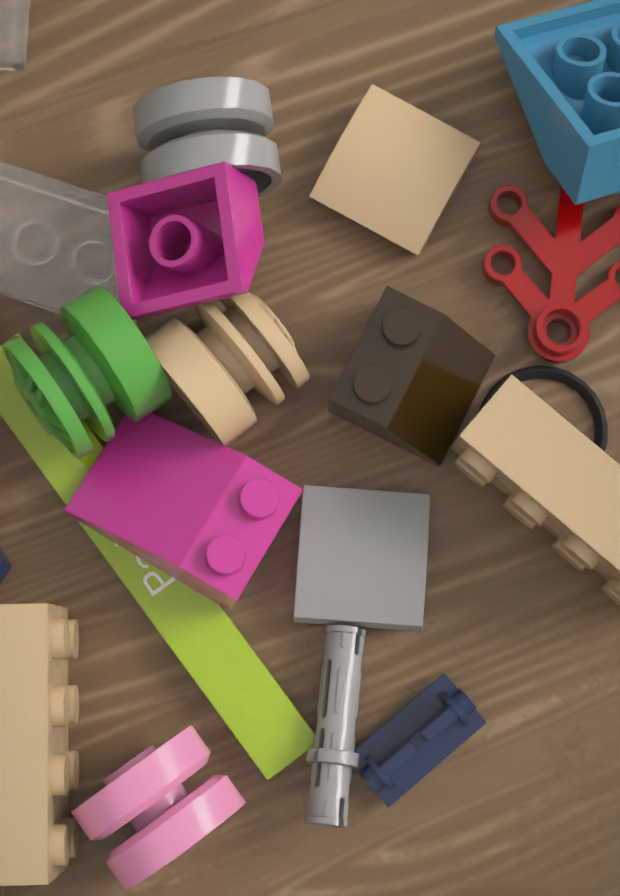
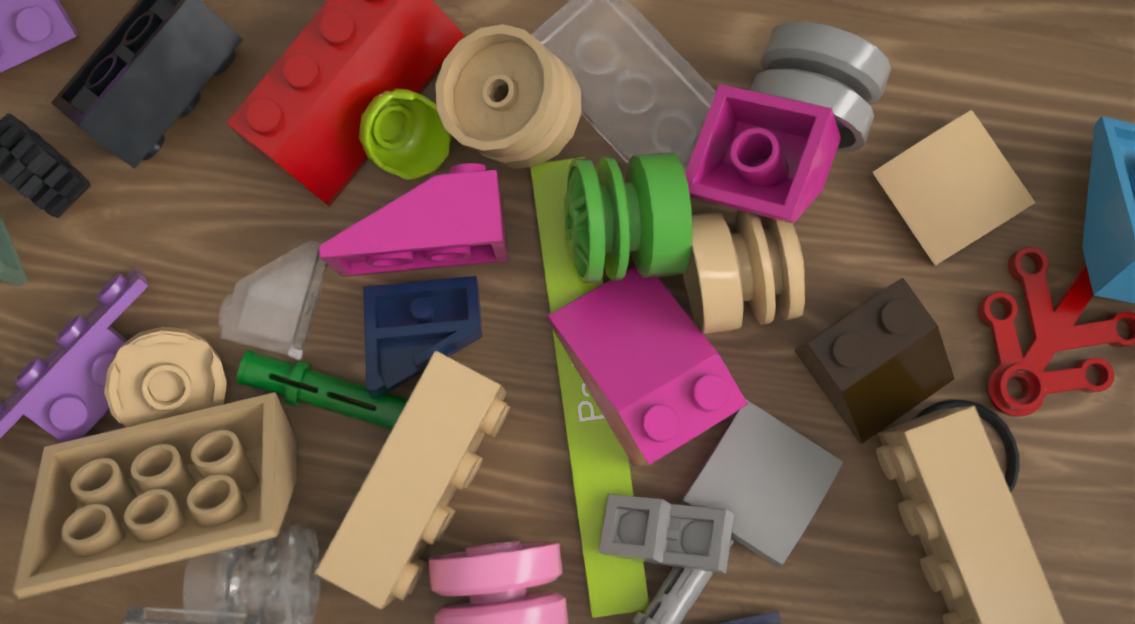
camera: 30 degrees right, 0 degrees up
(293, 657) = (666, 533): none -> light grey slope

